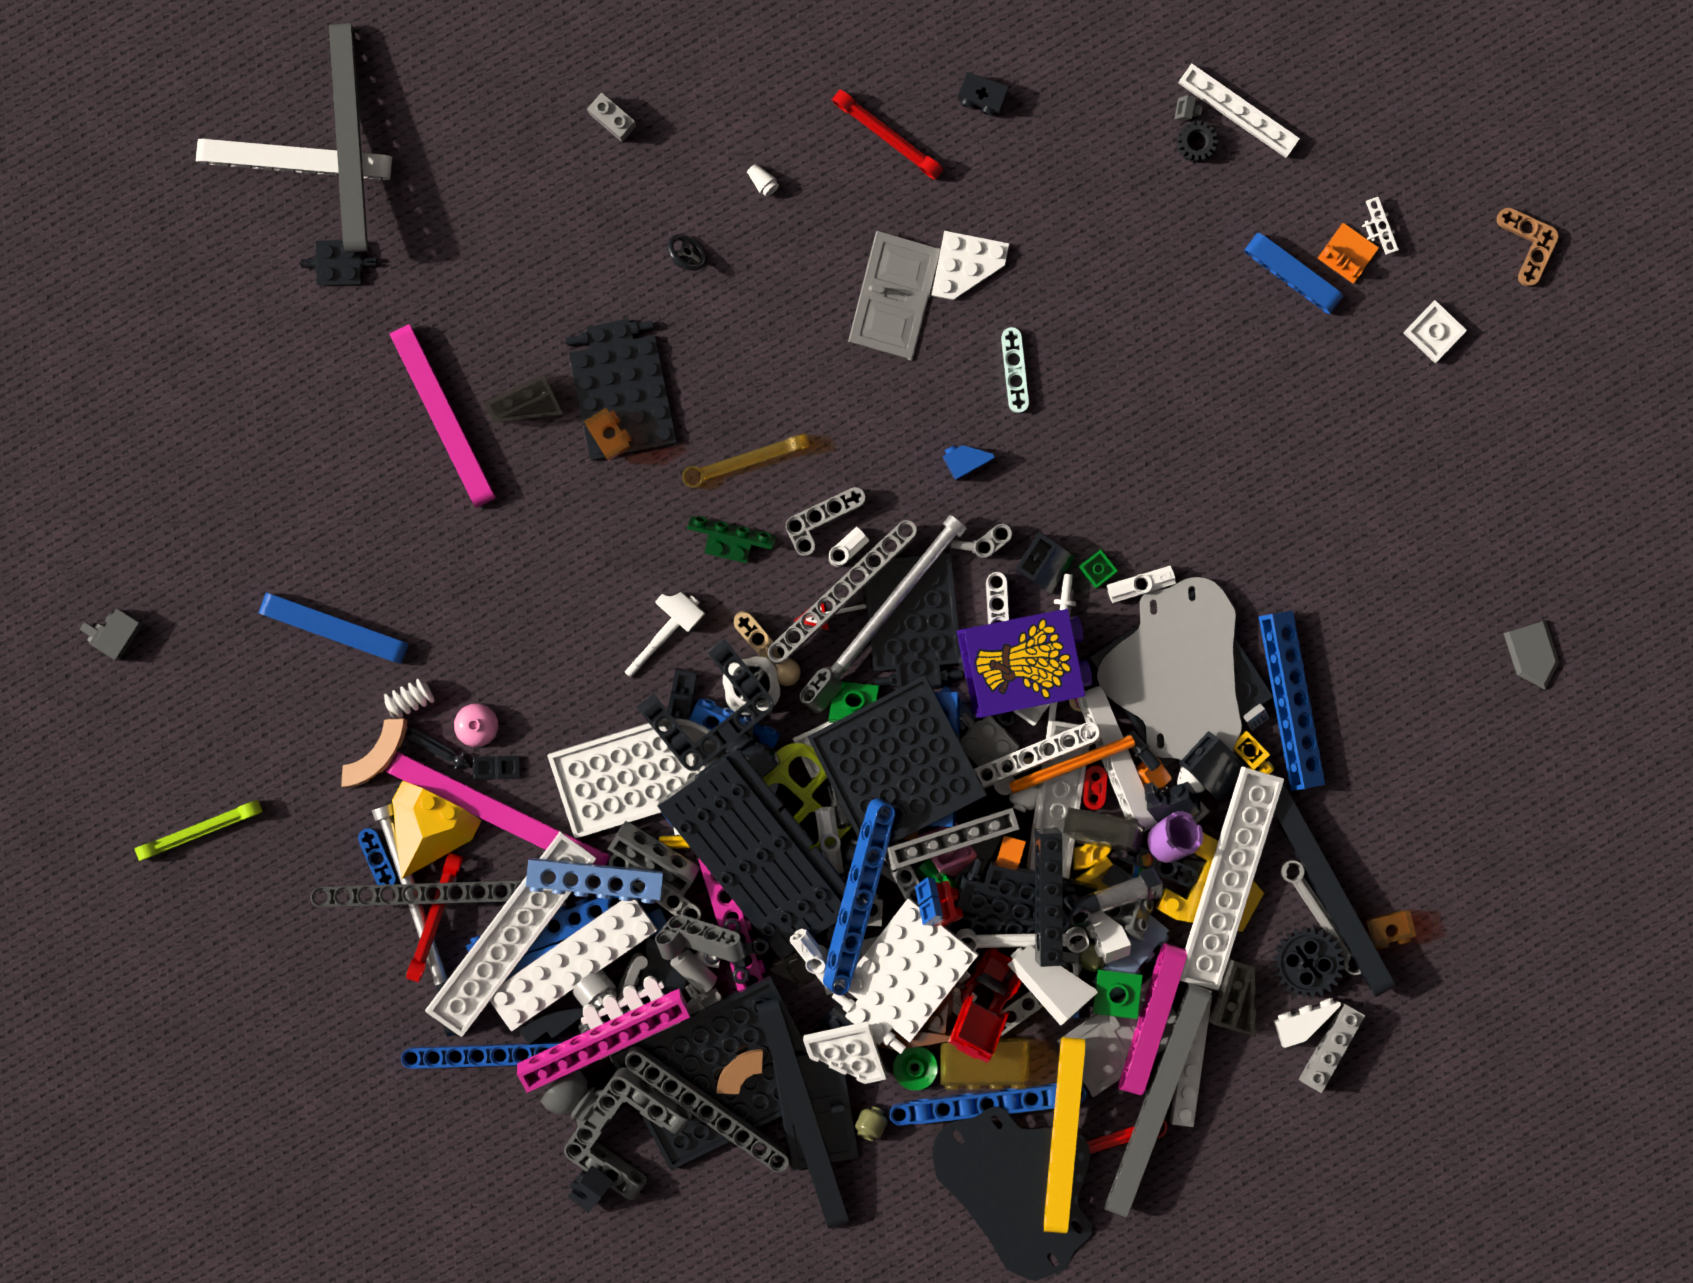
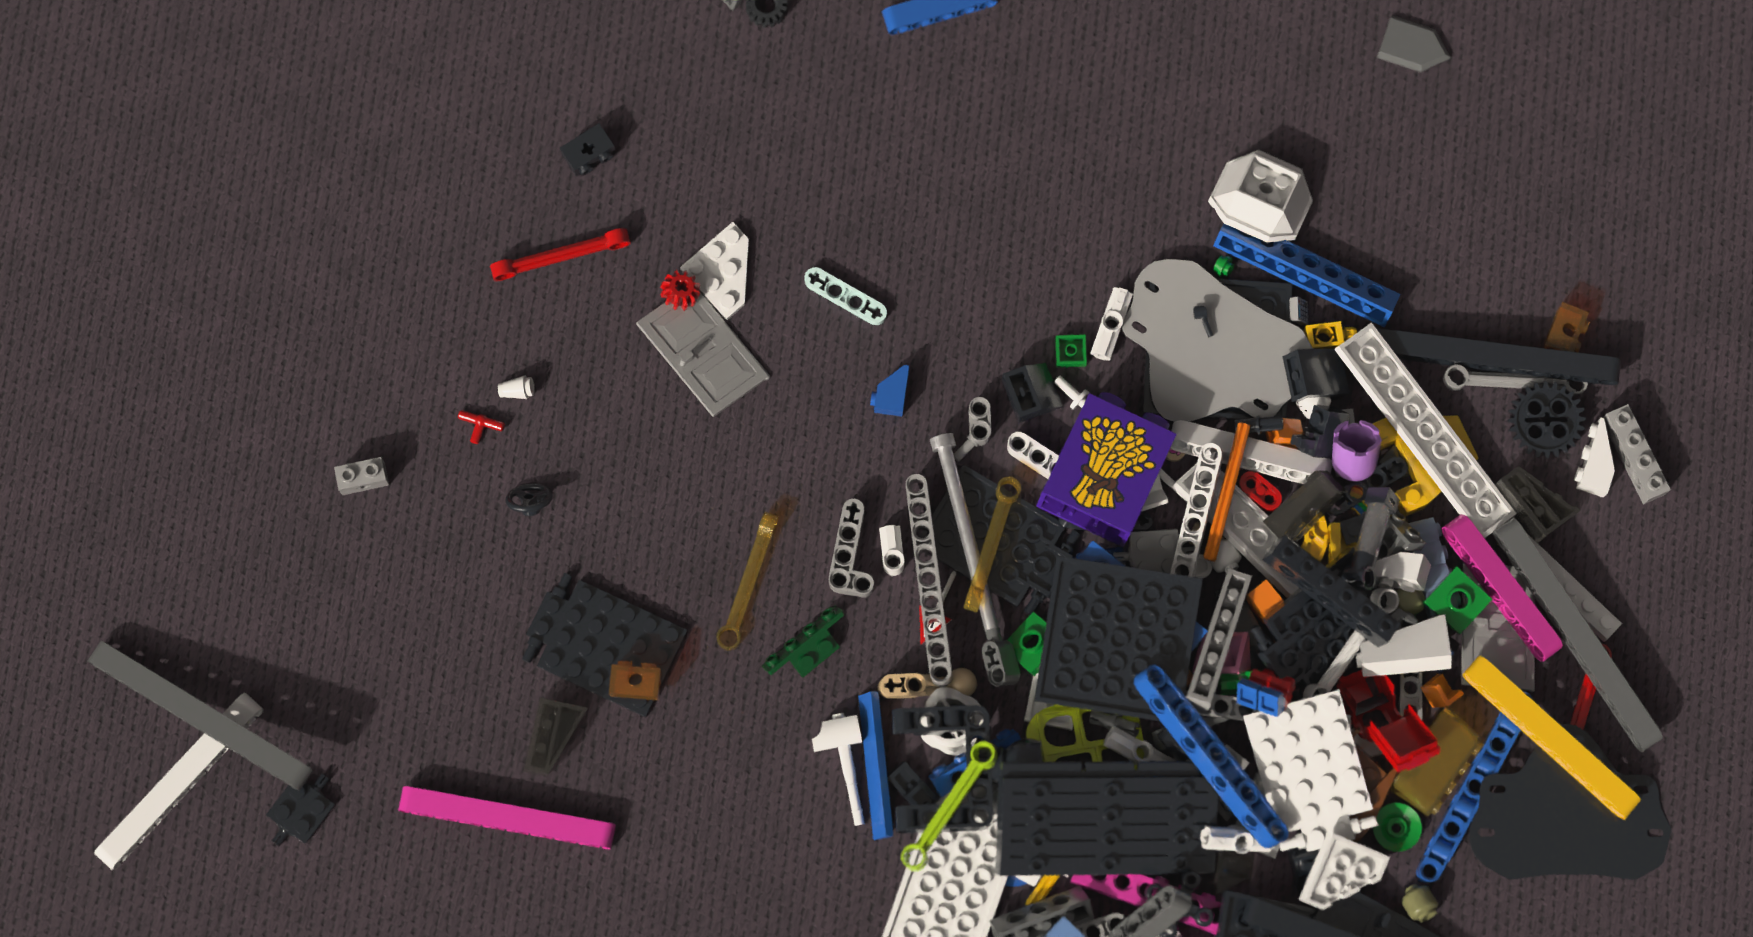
camera: 55 degrees left, 10 degrees down
(678, 654) = (875, 765): none -> blue tile
(680, 732) = (949, 806): none -> lime piece
(718, 173) = (480, 422): none -> red piece
(901, 619) = (991, 544): none -> clear yellow piece
(931, 240) = (686, 287): none -> red gear
(1039, 1029) = (1439, 692): none -> orange panel
(1197, 644) = (1200, 312): none -> black hand
(1248, 636) = (1223, 266): none -> green plate
(1306, 631) = (1262, 197): none -> white piece

